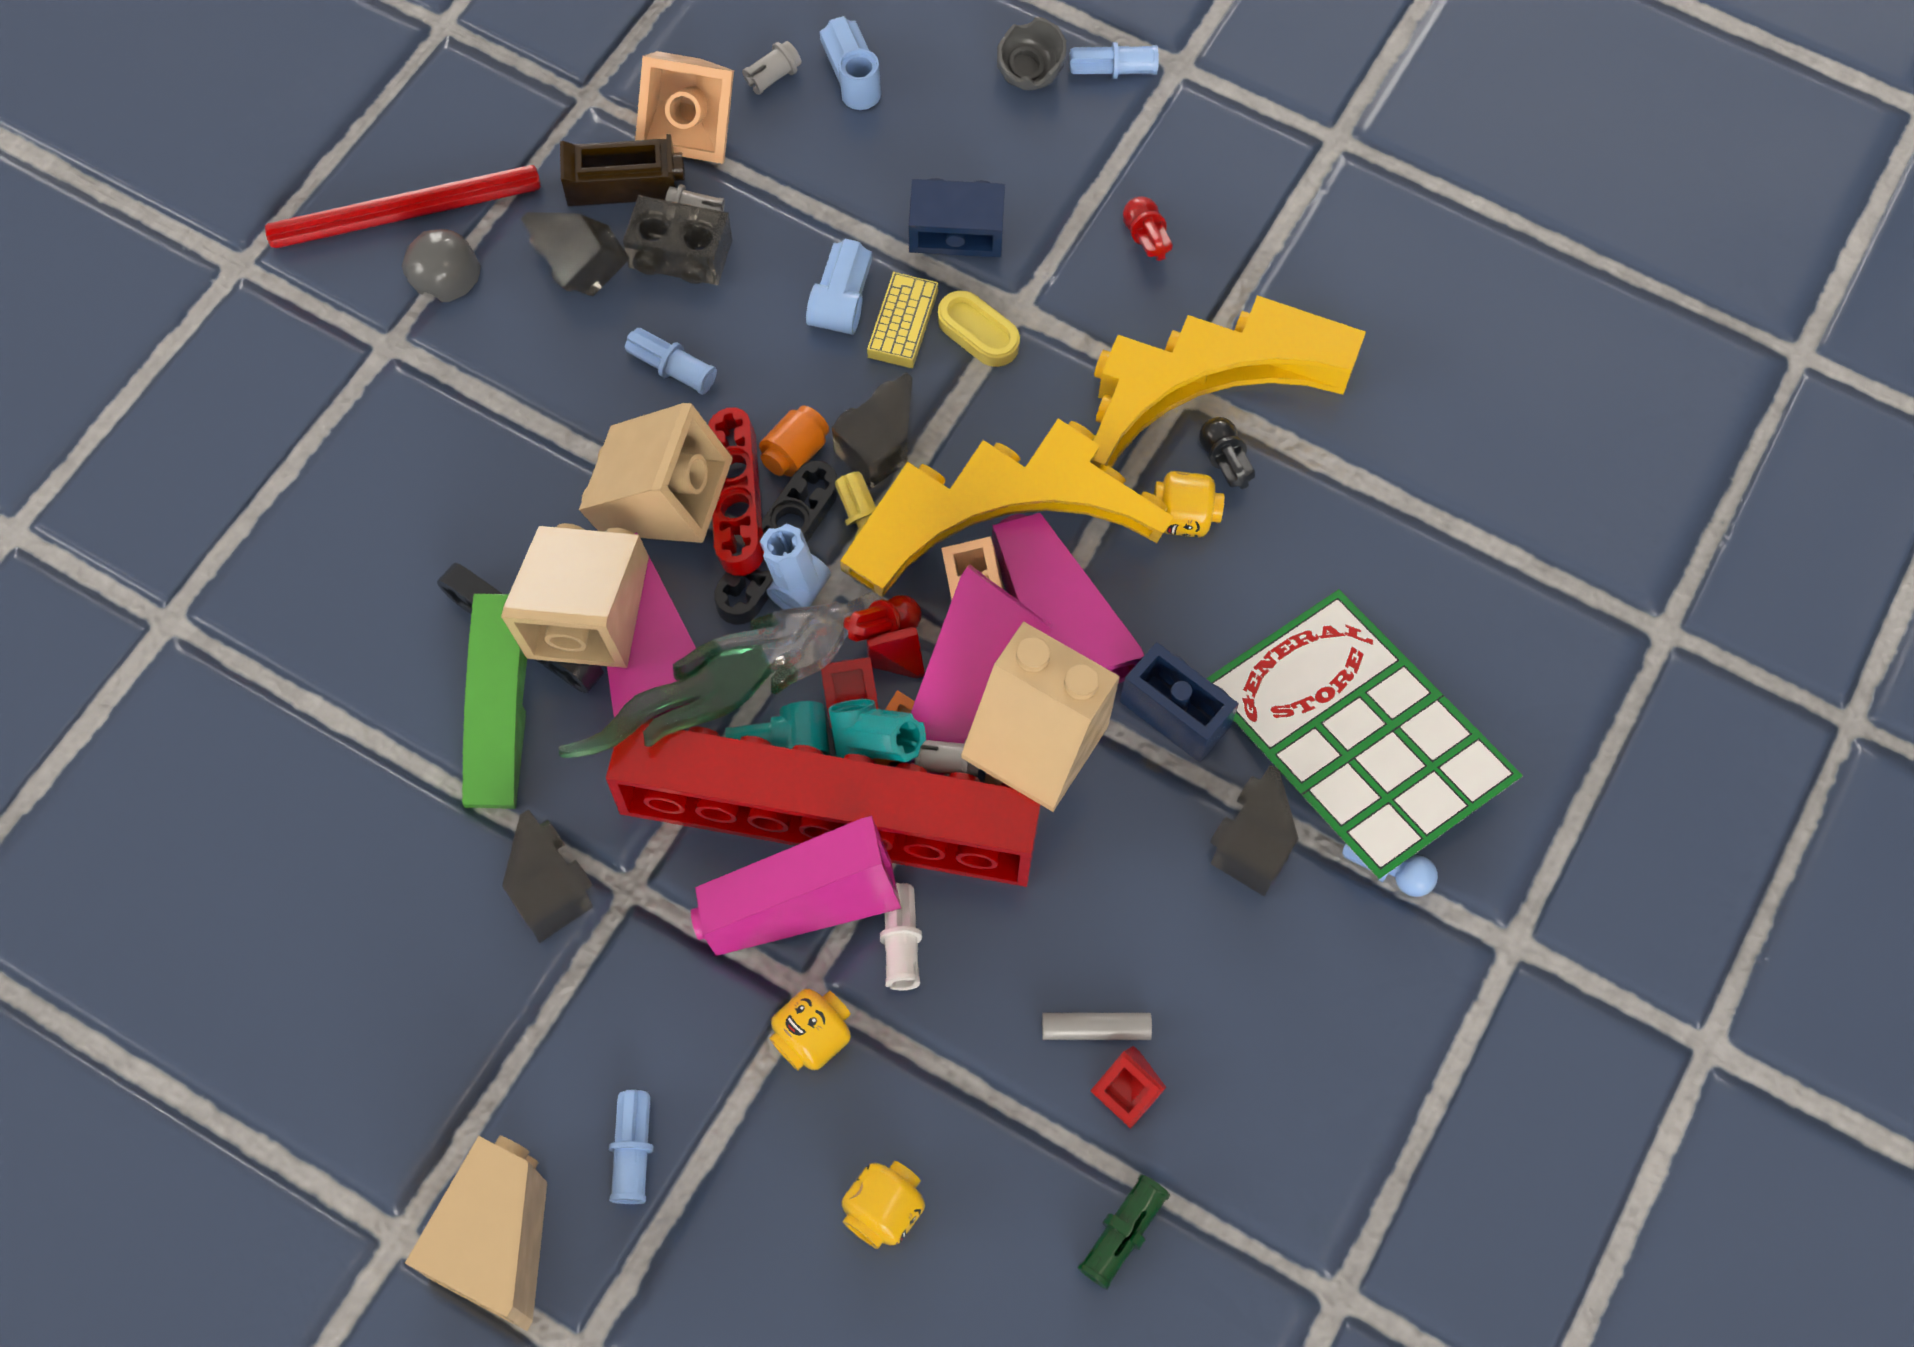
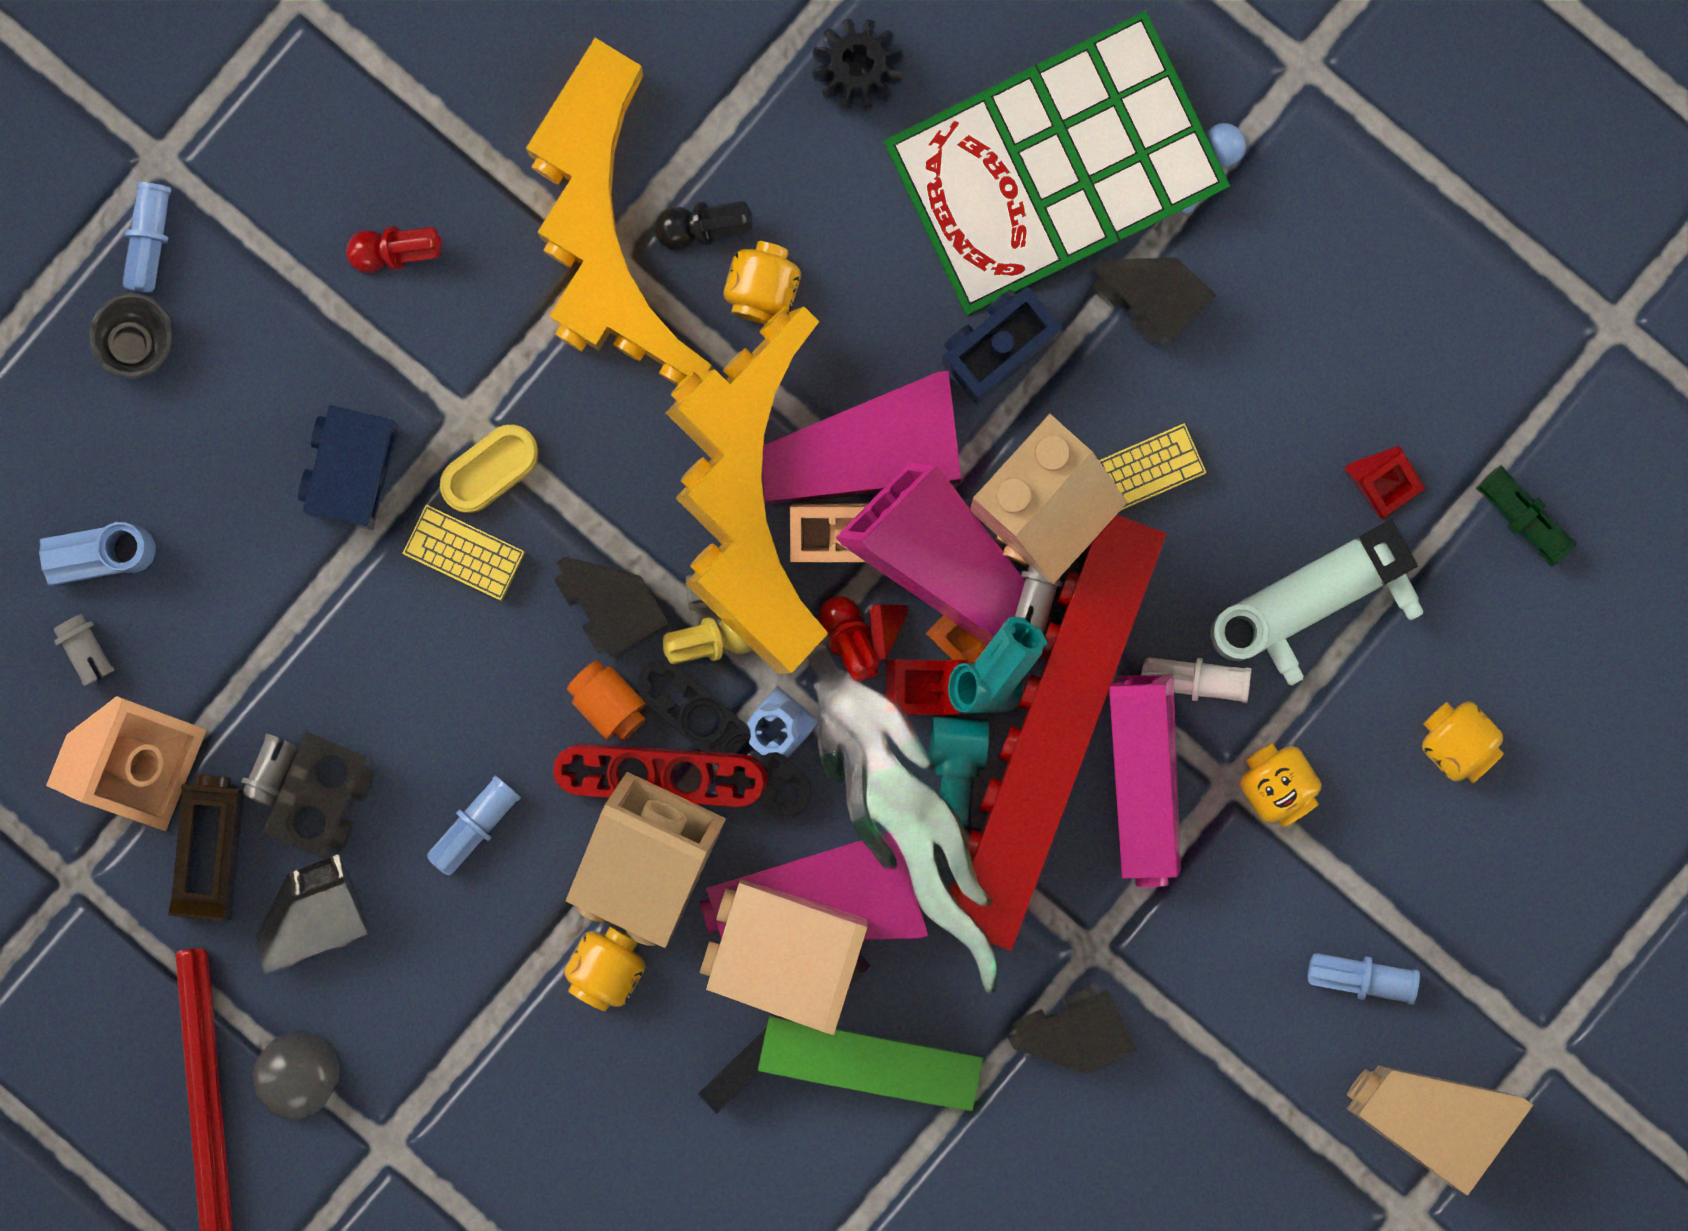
camera: 75 degrees left, 20 degrees up
(555, 474) = (604, 969): none -> yellow head
(838, 298) = (425, 621): light blue piece -> none
(1046, 1079) = (1318, 591): none -> light aqua piece
(1091, 858) = (1154, 465): none -> light yellow tile
(1096, 1026) = (1320, 500): light grey piece -> none
(1400, 566) = (876, 58): none -> black gear

